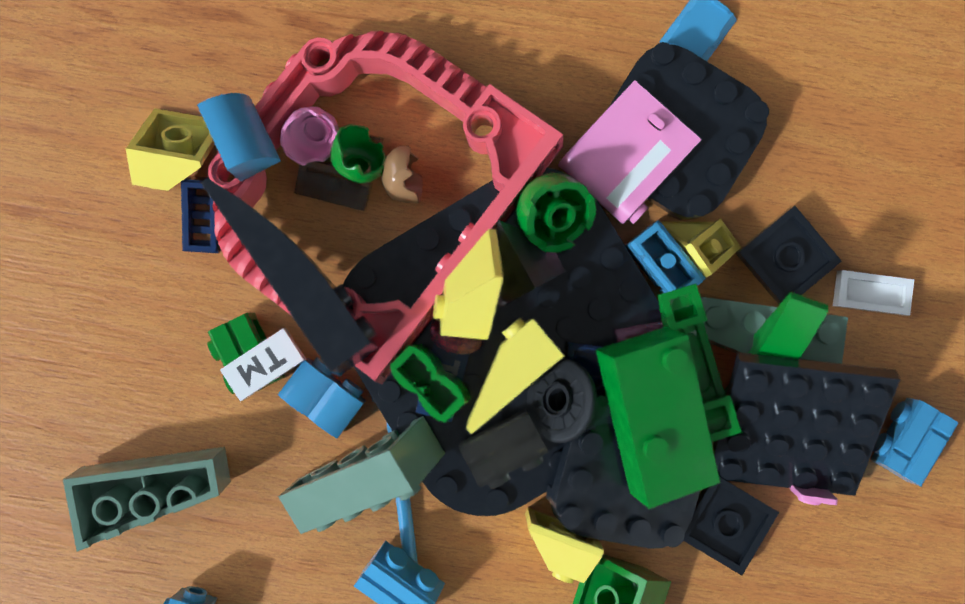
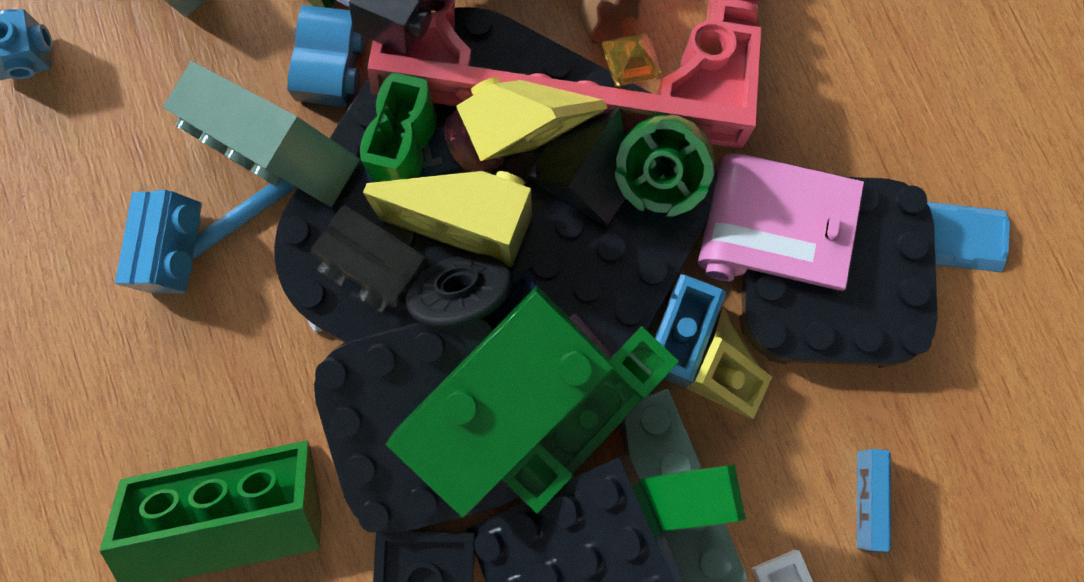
camera: 60 degrees right, 10 degrees down
(468, 191) = (631, 59): none -> clear yellow slope
(563, 552) = (288, 395): light yellow slope -> none
(788, 255) = (781, 475): black plate -> none
(839, 203) = (874, 500): none -> dark azure tile

